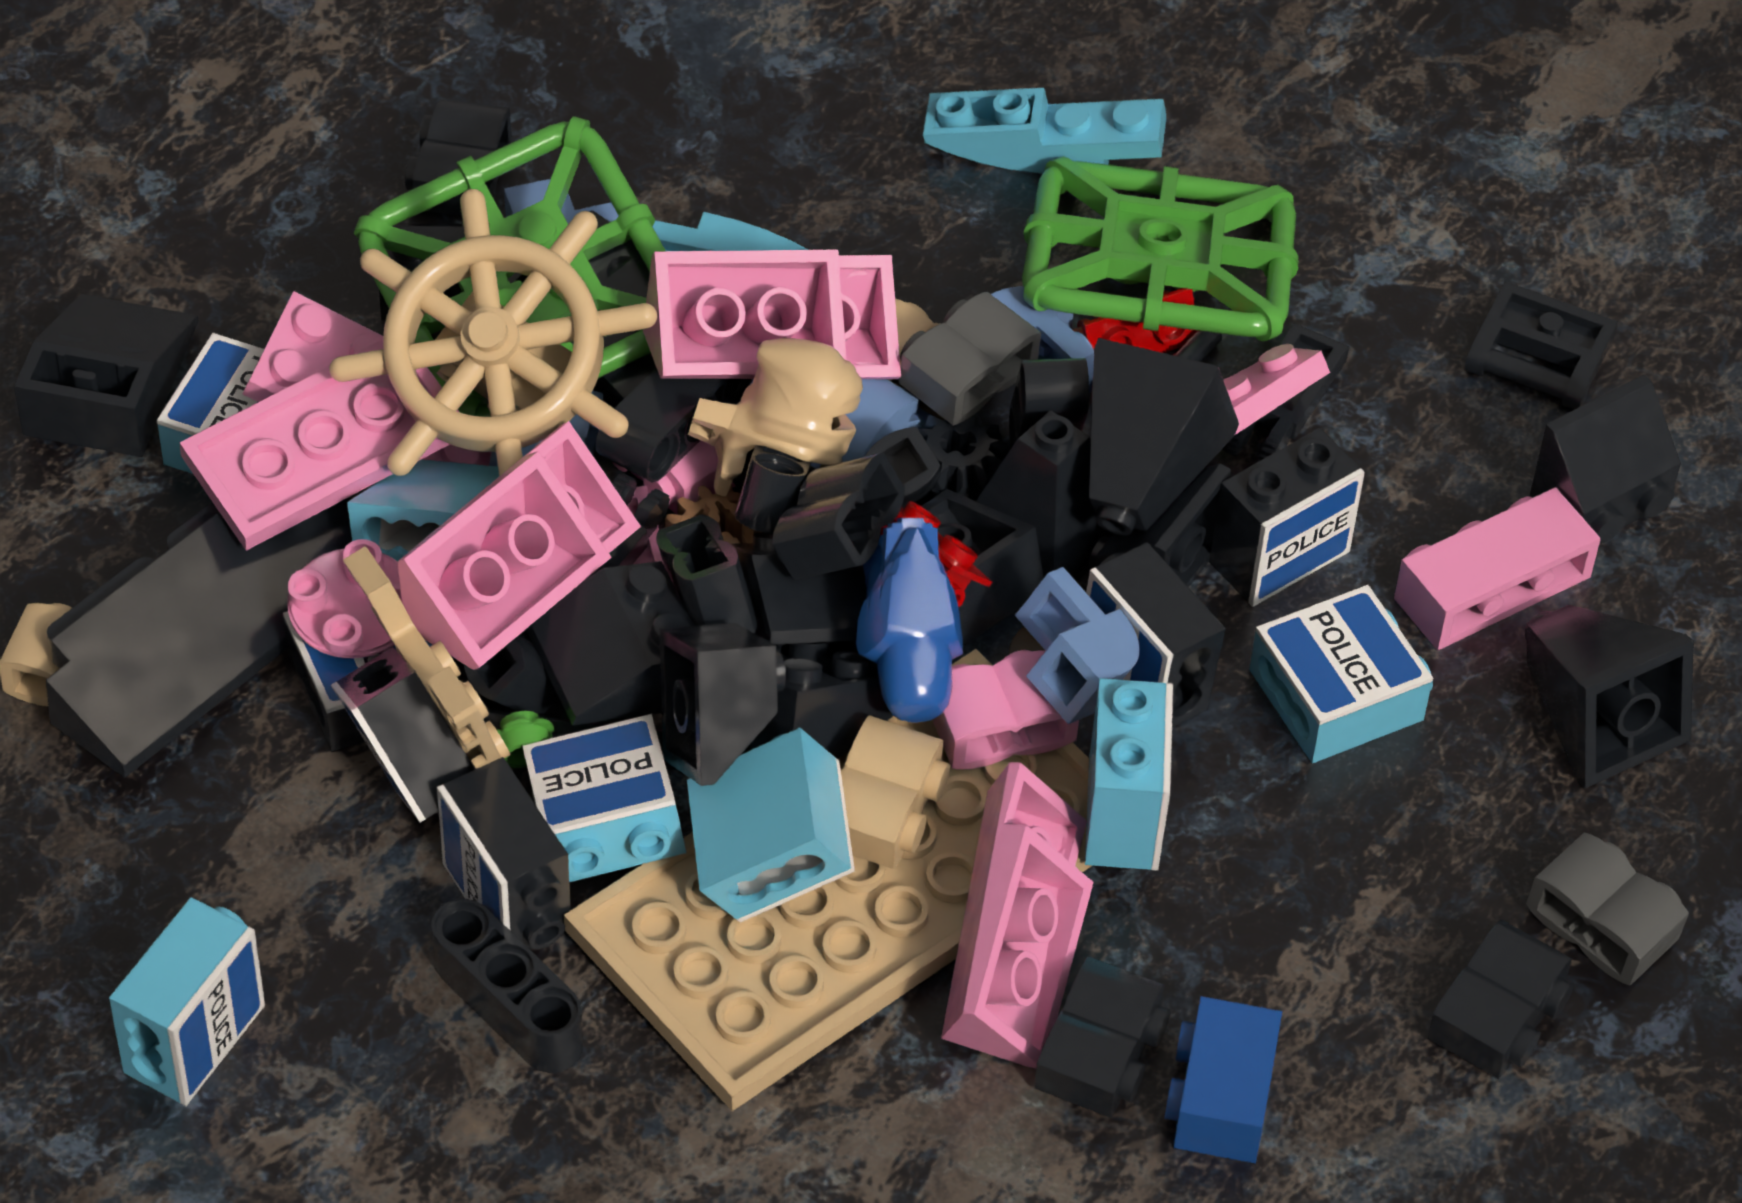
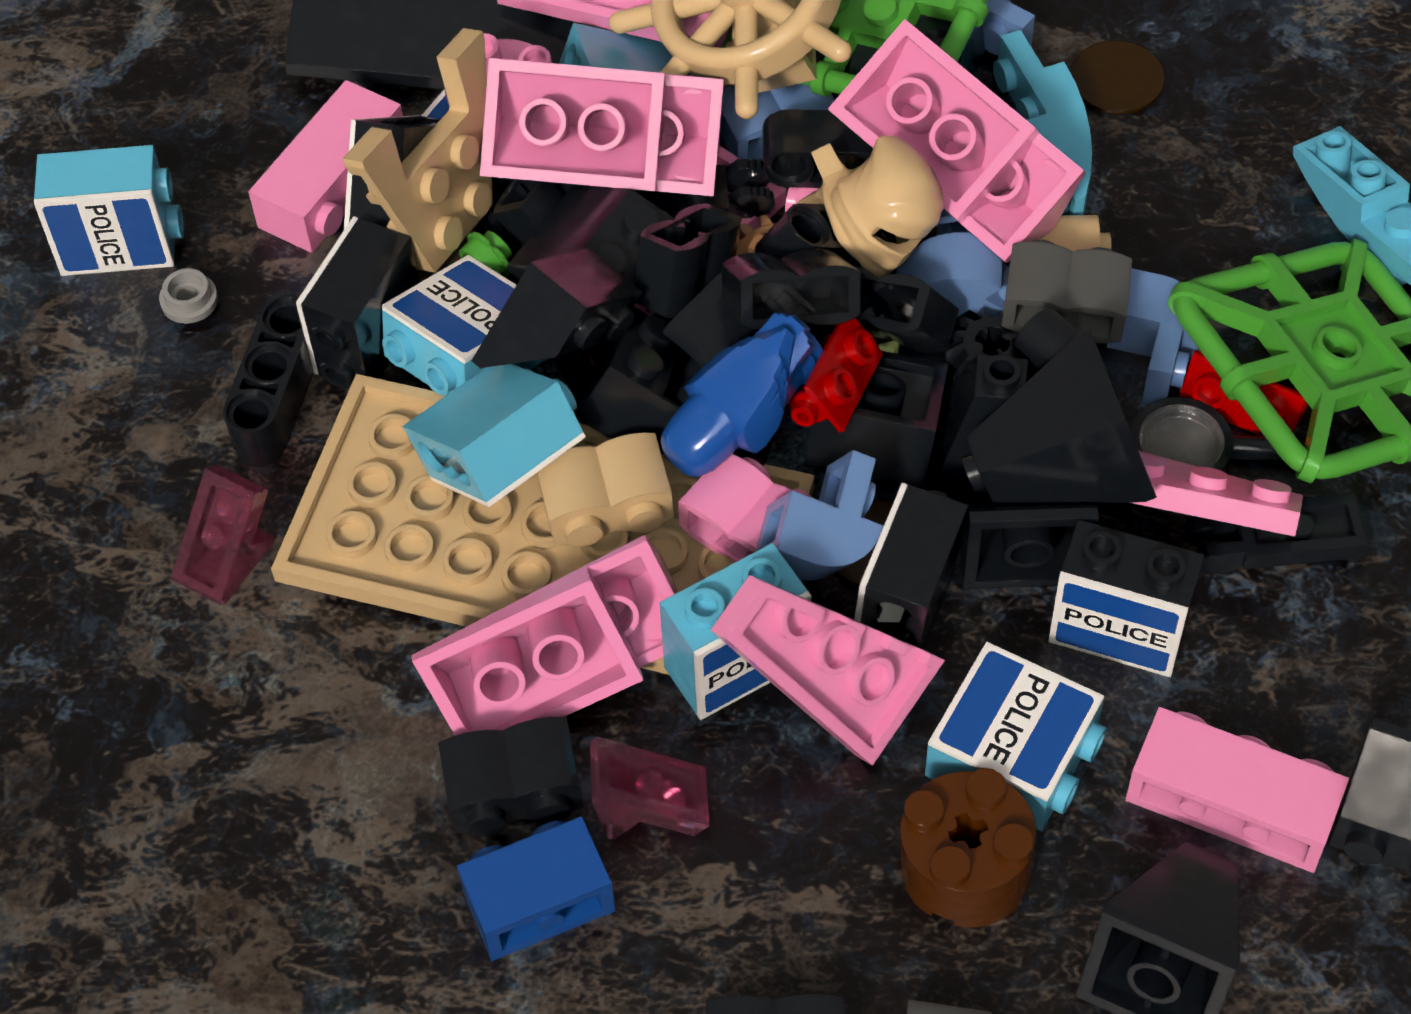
camera: 60 degrees right, 5 degrees up
(285, 804) = (306, 186): none -> bright pink brick
(325, 991) = (186, 285): none -> light grey plate
(662, 1115) = (222, 535): none -> clear pink slope
(719, 190) = (1117, 77): none -> dark brown piece
(1194, 949) = (646, 788): none -> clear pink slope
(1219, 729) = (829, 665): none -> bright pink wing
(1421, 763) = (967, 847): none -> reddish brown brick

